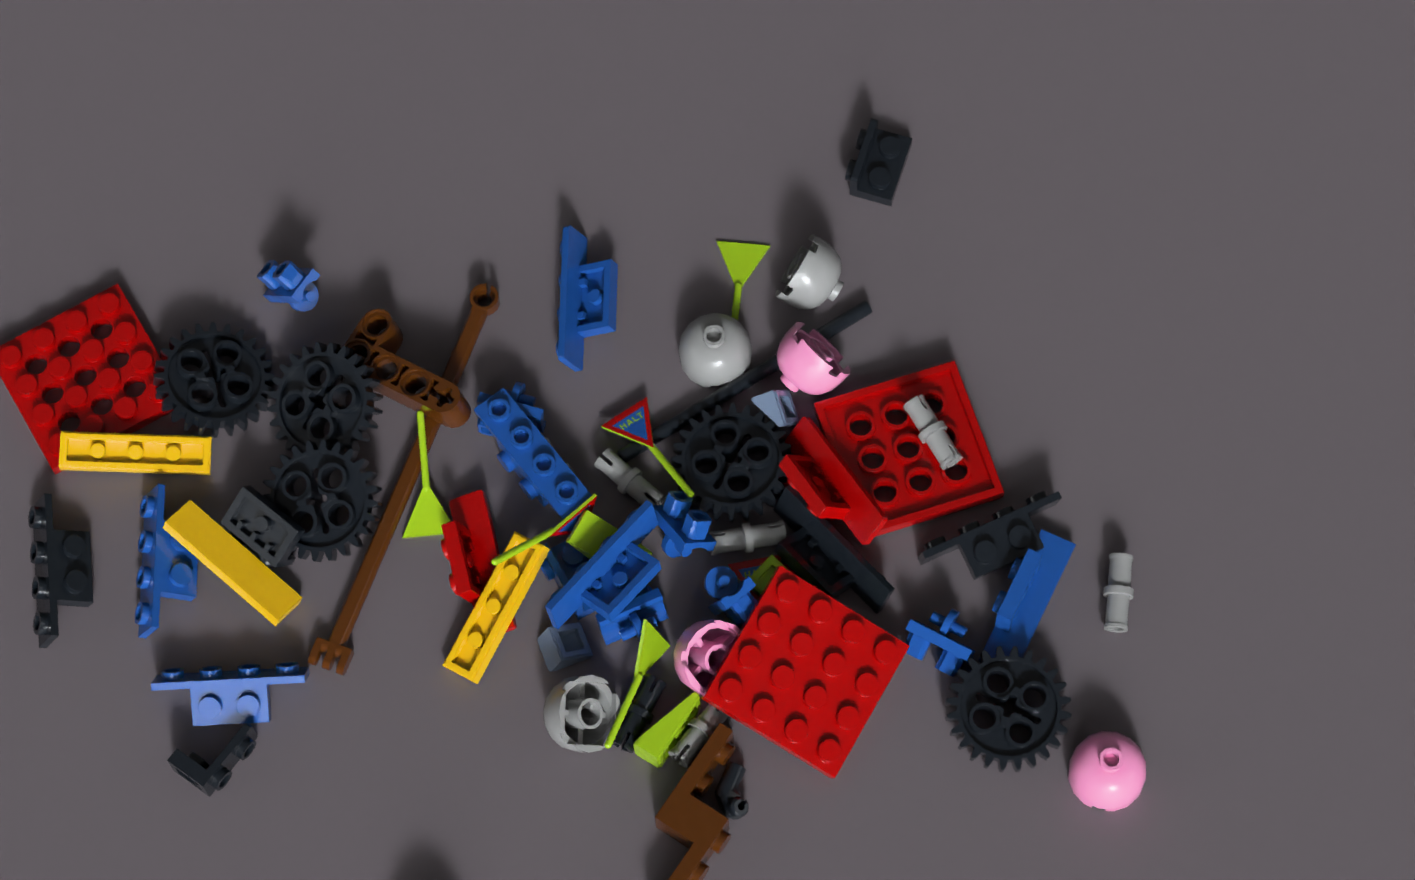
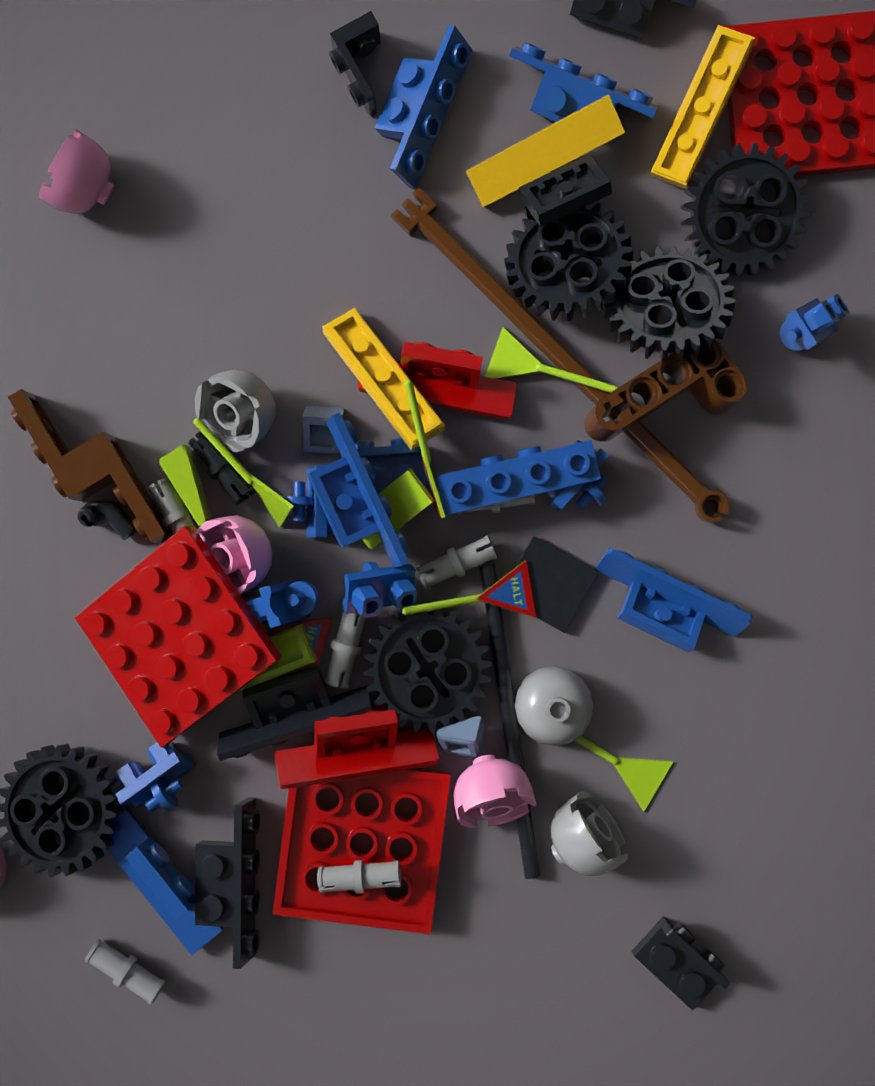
camera: 110 degrees right, 20 degrees up
(607, 394) = (556, 582): none -> black piece

